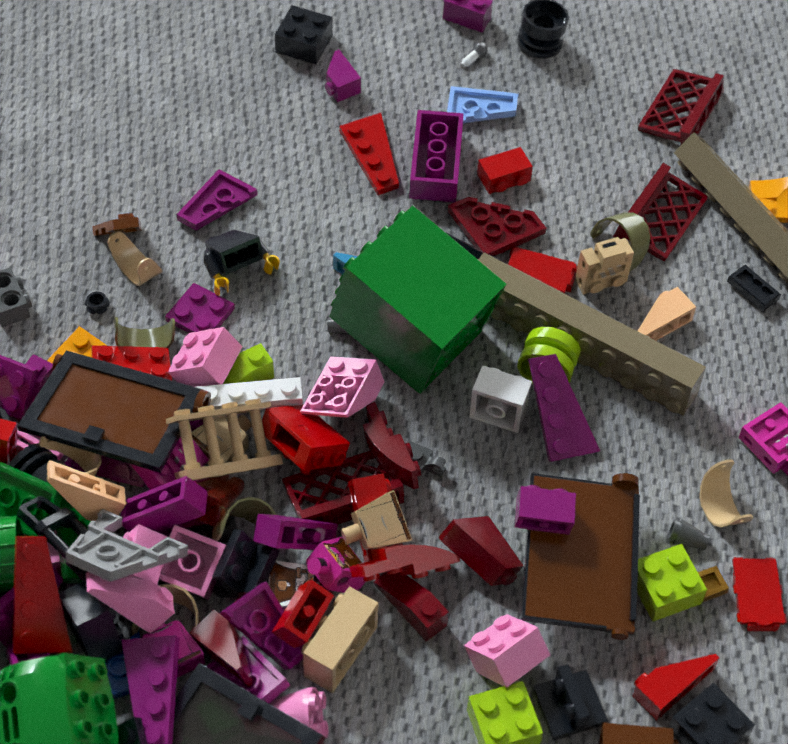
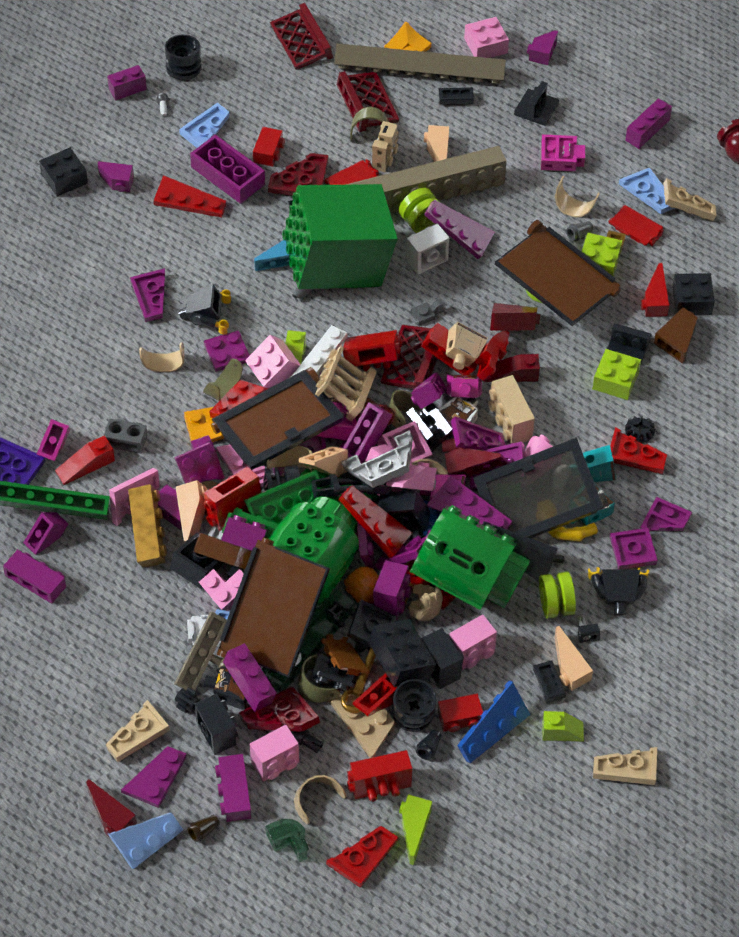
camera: 50 degrees left, 0 degrees up
(94, 298) = (172, 391): black plate -> none
(124, 223) = (133, 345): dark orange wing -> none
(303, 614) = (487, 413): red brick -> none
(344, 387) = (356, 311): bright pink slope -> none
(389, 448) = (417, 318): dark red slope -> none
(507, 650) = (582, 344): bright pink brick -> none
(545, 509) = (525, 268): magenta brick -> none

